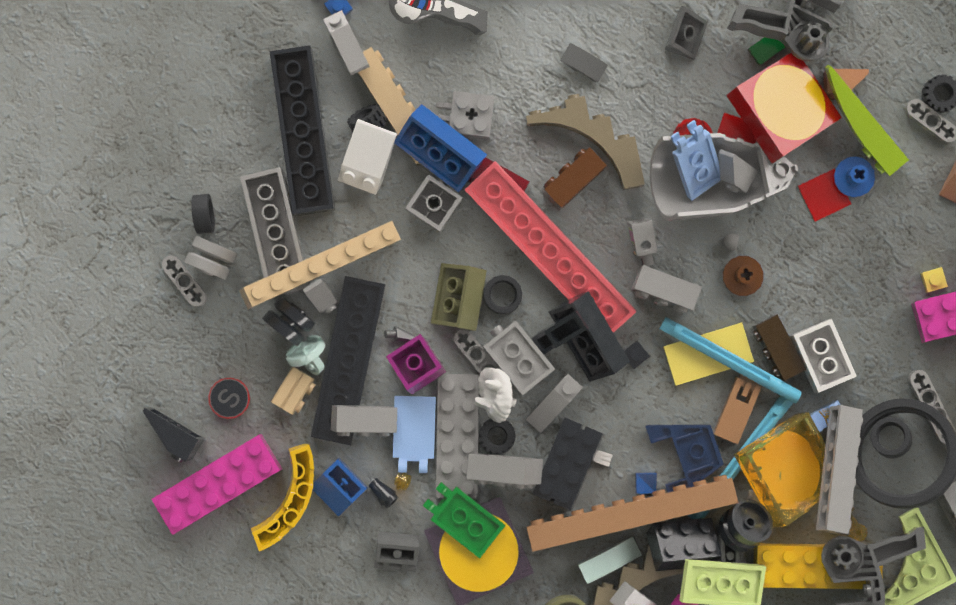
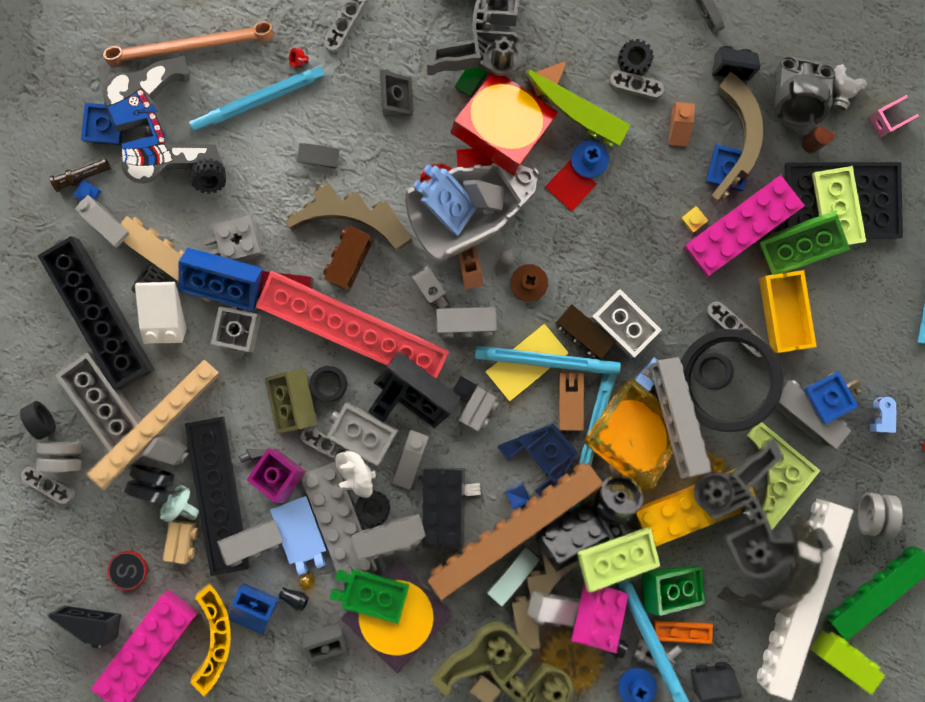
camera: 20 degrees left, 0 degrees up
(471, 32) = (208, 167): none -> black tyre
(641, 380) = (478, 409): none -> light grey brick
(691, 238) = (470, 268): none -> nougat slope

